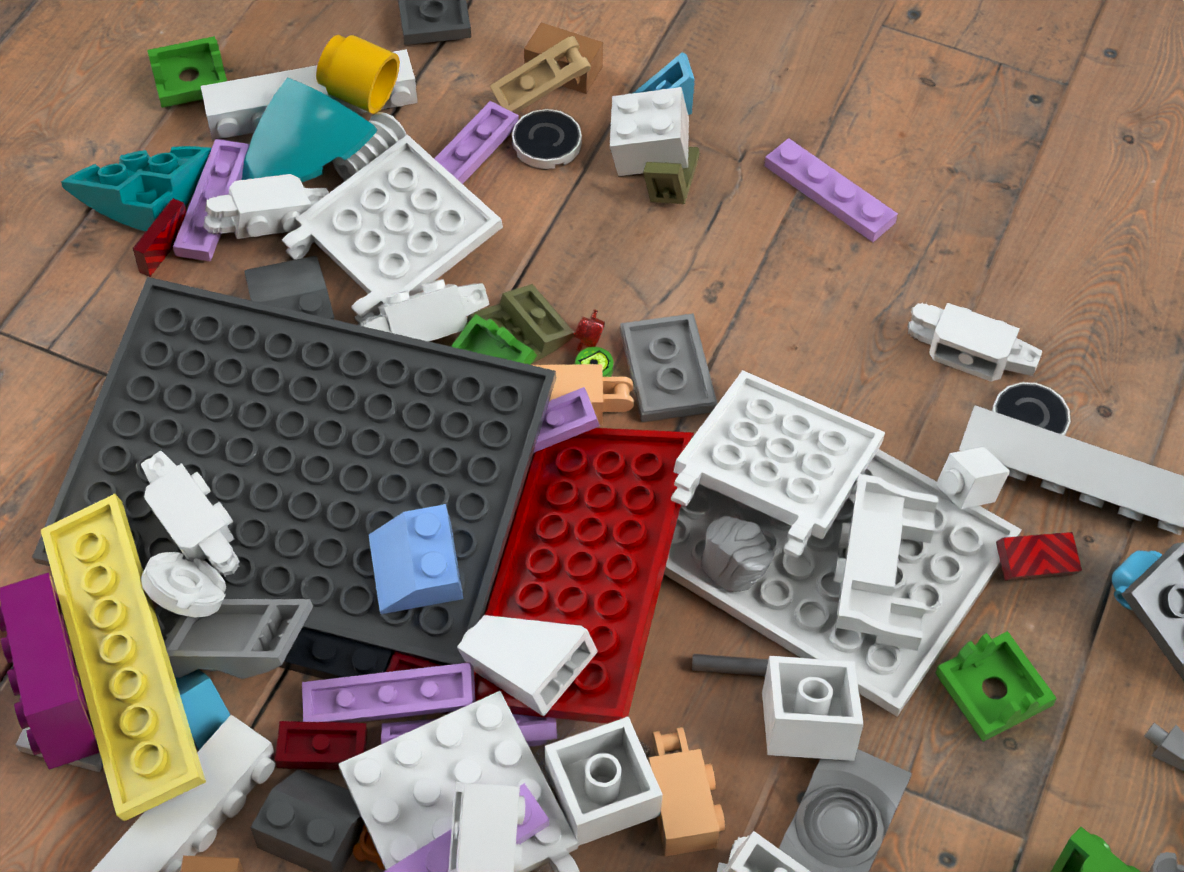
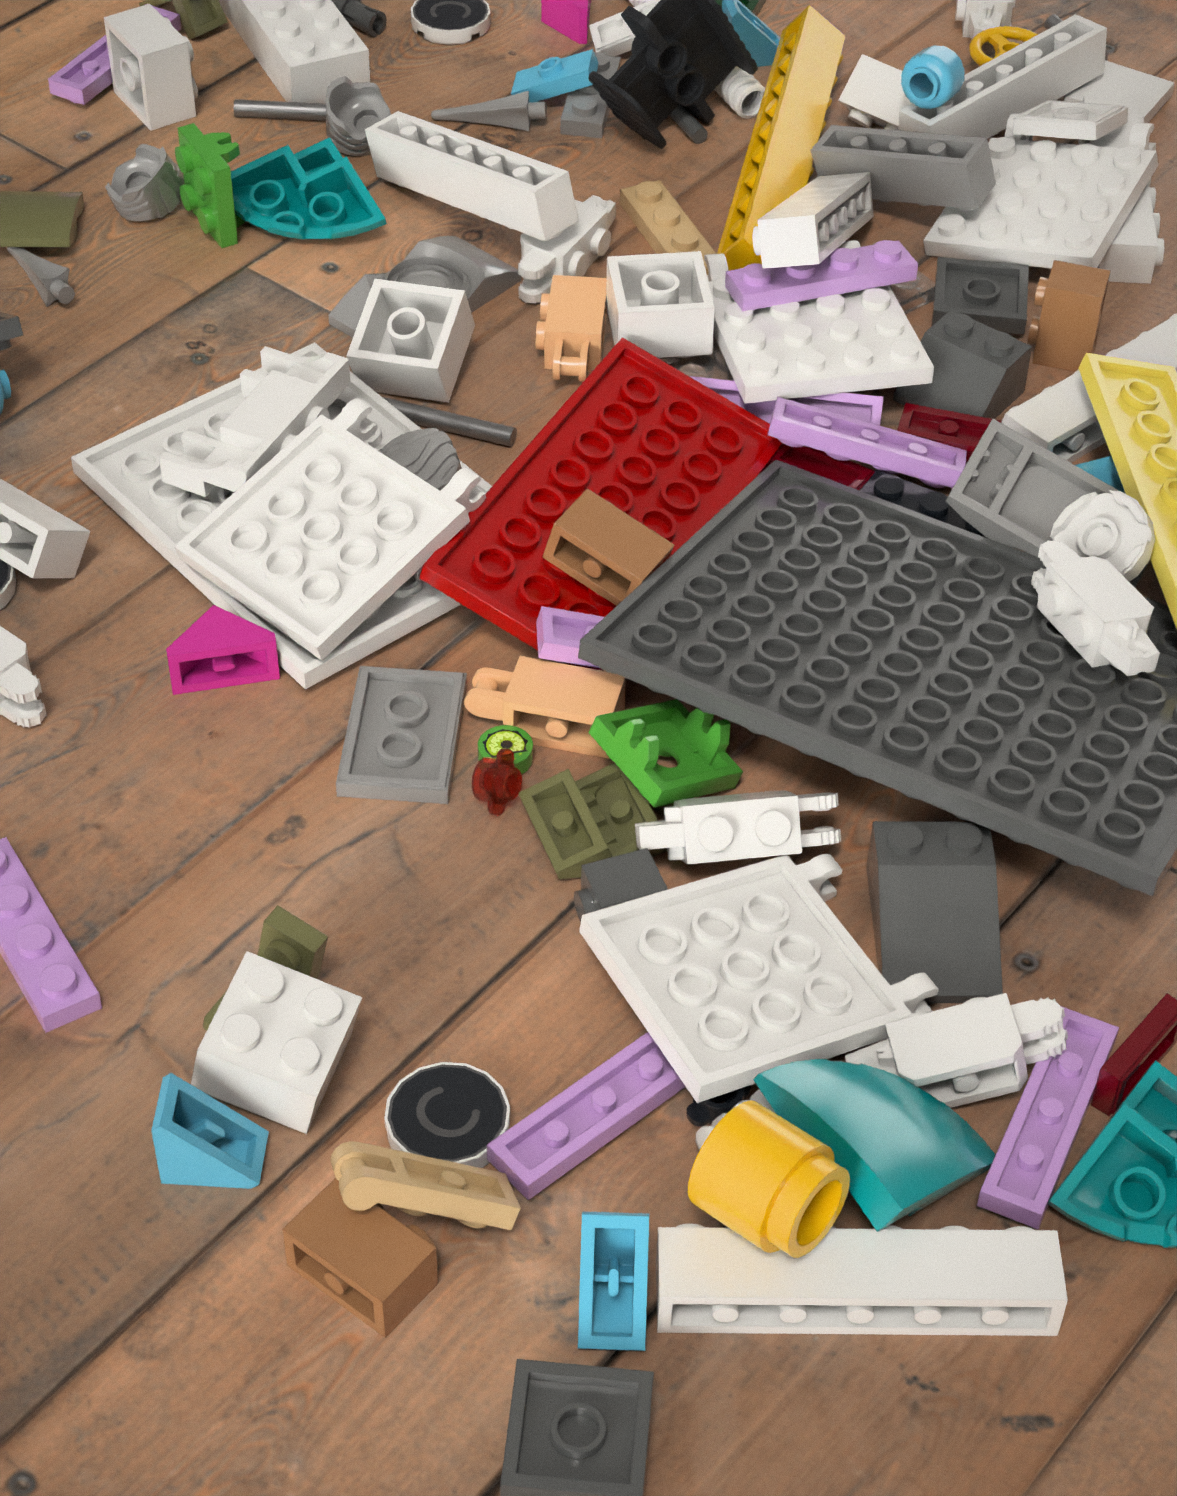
camera: 165 degrees left, 10 degrees down
(171, 60) = (1117, 1365): bright green piece -> none
(415, 560) = (811, 511): light blue slope -> none
(435, 77) = (613, 1281): none -> medium azure slope
(486, 264) = (617, 881): none -> dark grey brick
(528, 657) = (708, 407): white slope -> none
(565, 488) = (605, 547): none -> medium nougat brick
(816, 379) = (221, 653): none -> dark pink slope
(972, 477) = (98, 490): white brick -> none
(1002, 660) = (176, 339): bright green piece -> none
(1038, 556) = (69, 433): tile -> none

